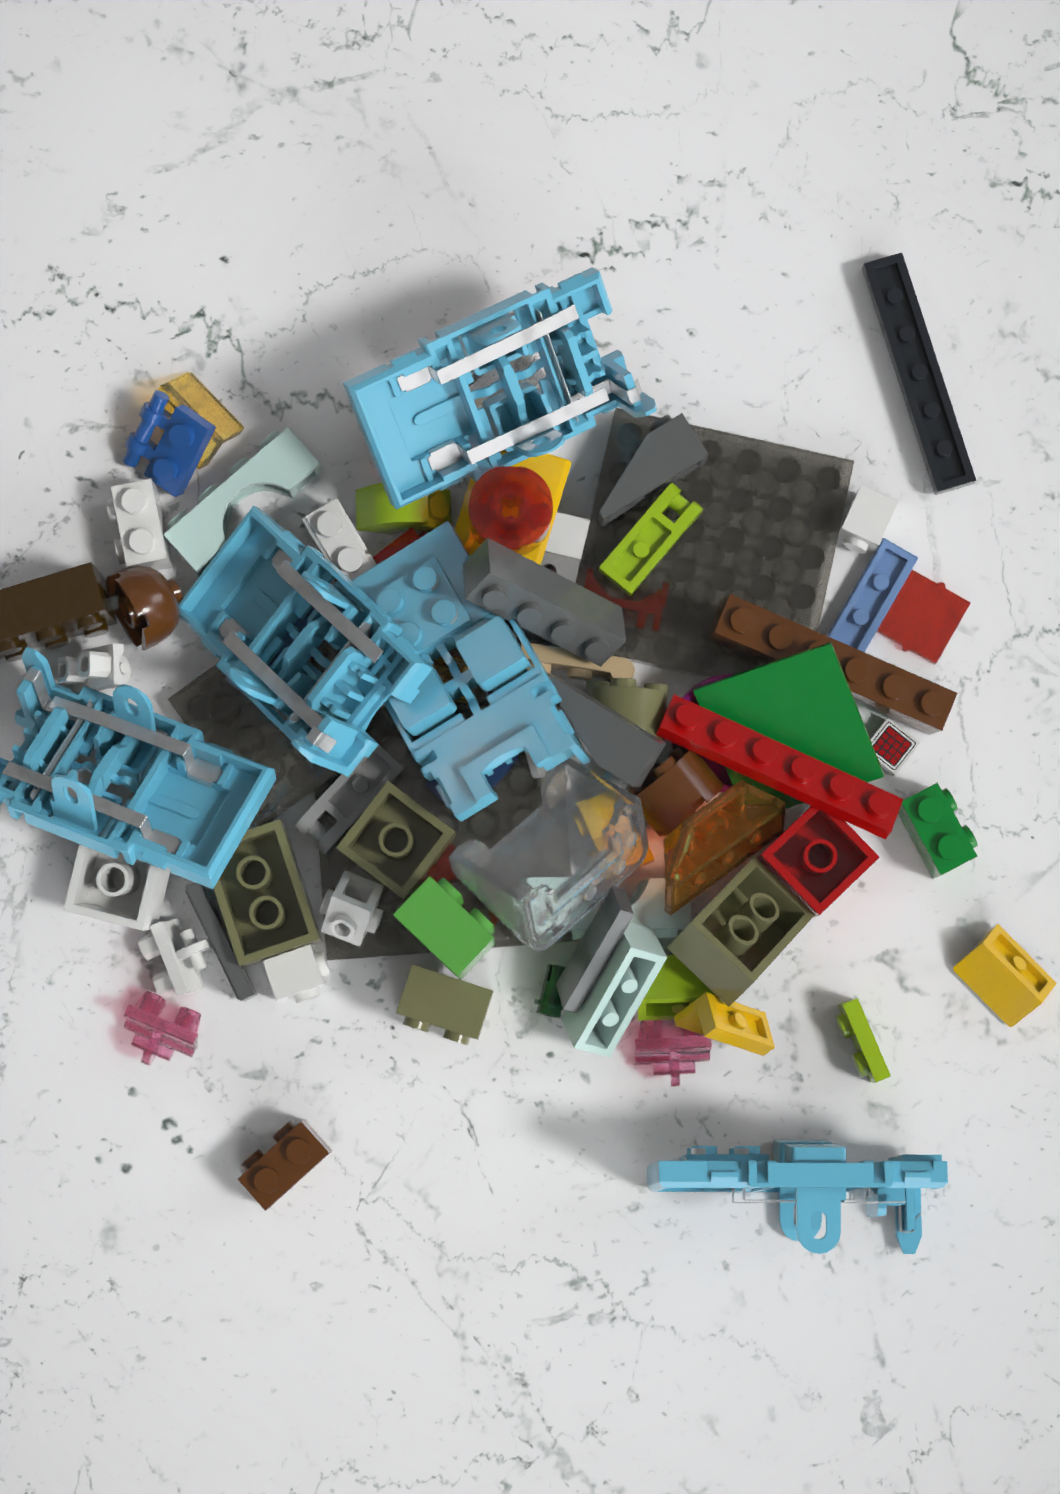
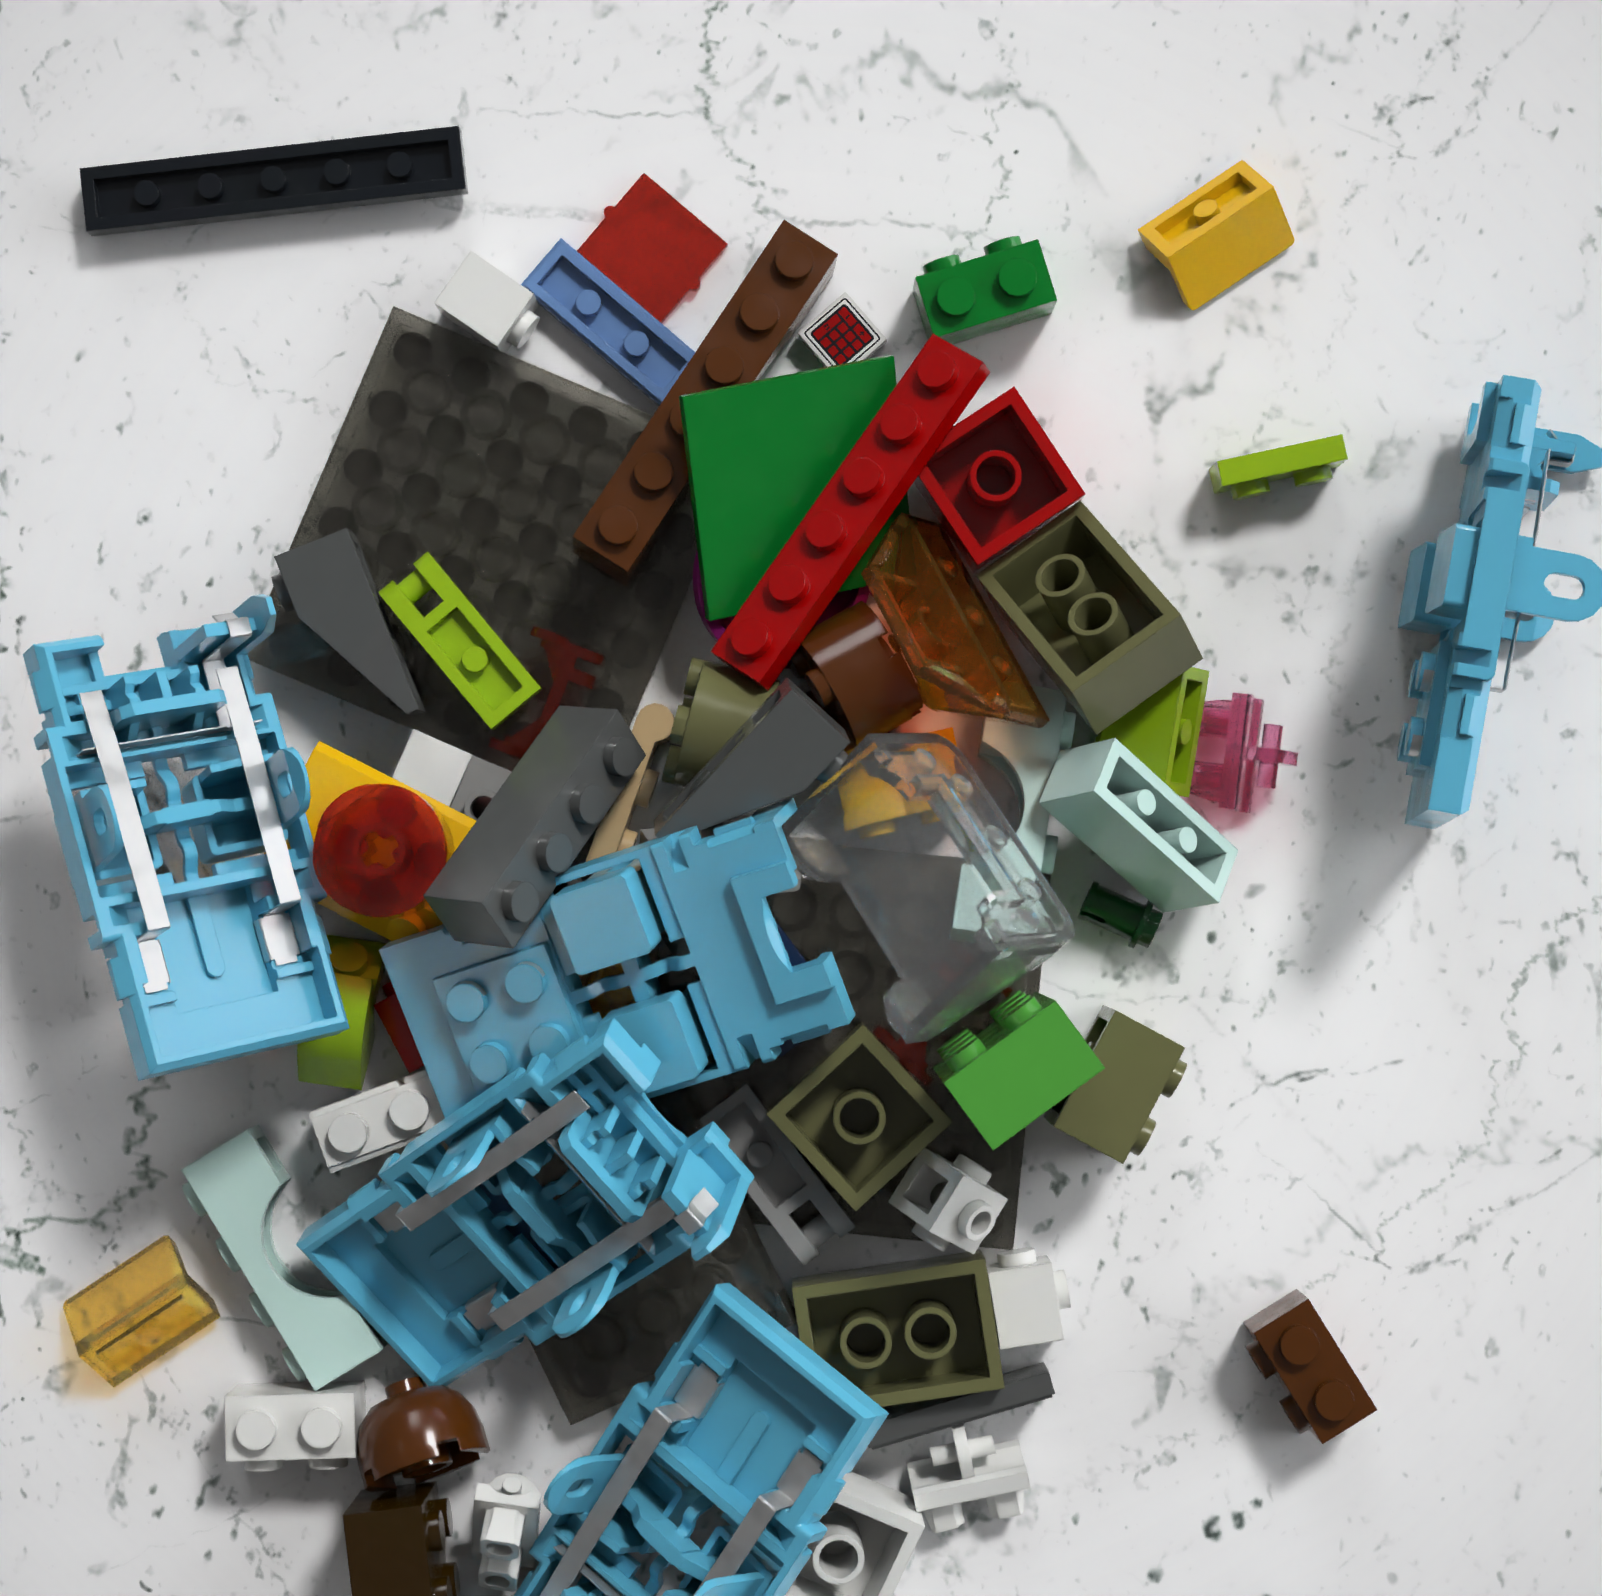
camera: 75 degrees left, 5 degrees up
(159, 1034) = (1054, 1540): clear pink hips -> none
(179, 448) = (182, 1342): blue plate -> none
(594, 949) = (1078, 844): dark grey tile -> none
(731, 1025) = (1231, 649): yellow panel -> none

